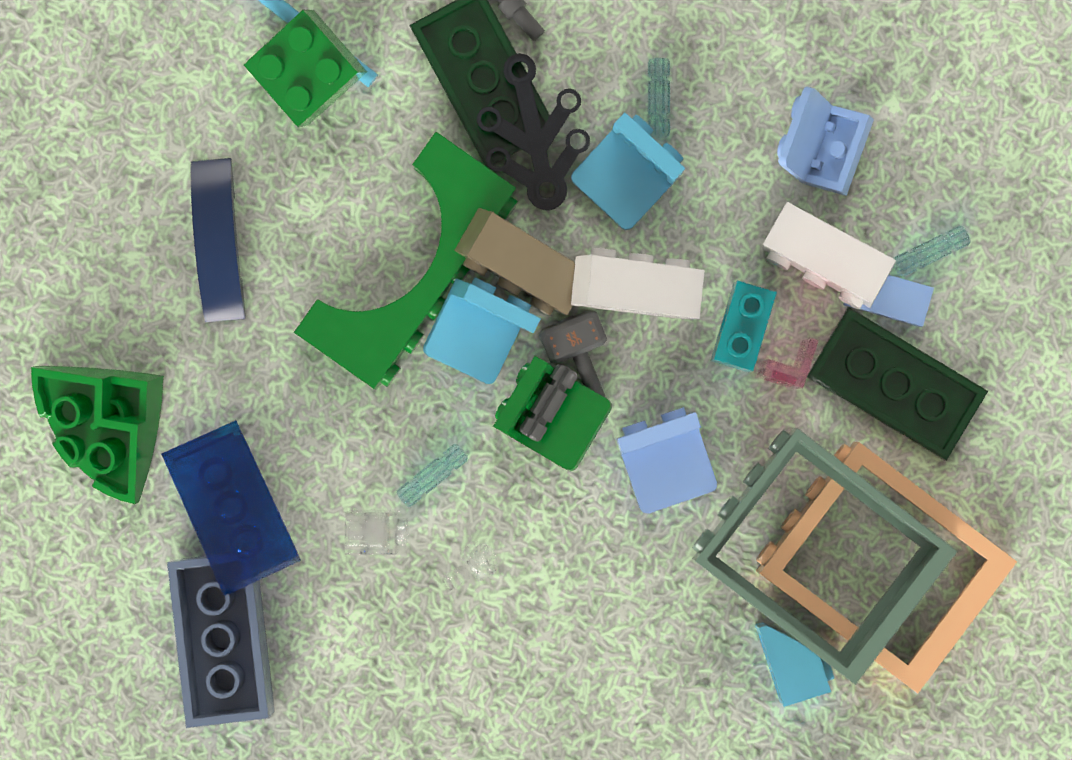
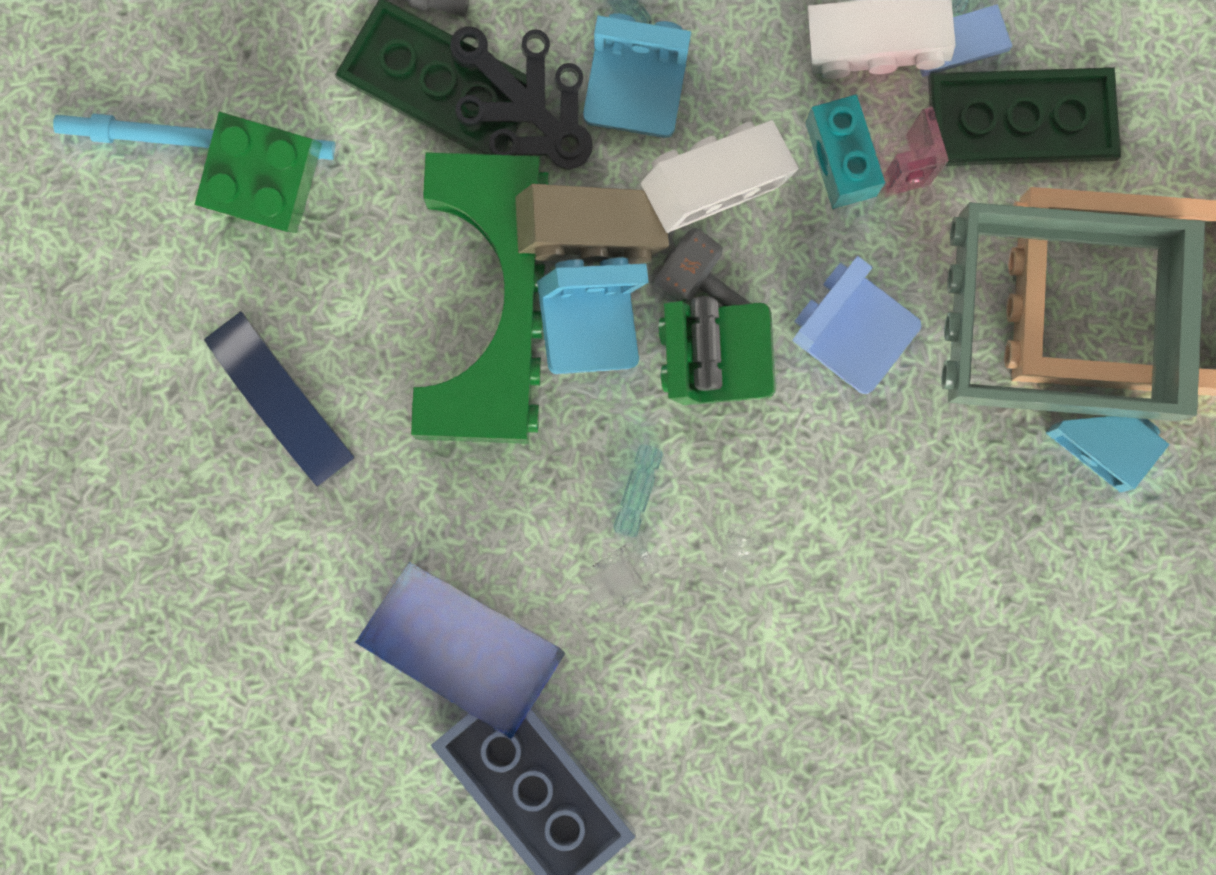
camera: 40 degrees left, 5 degrees down
(102, 423) = (276, 651): green brick -> none

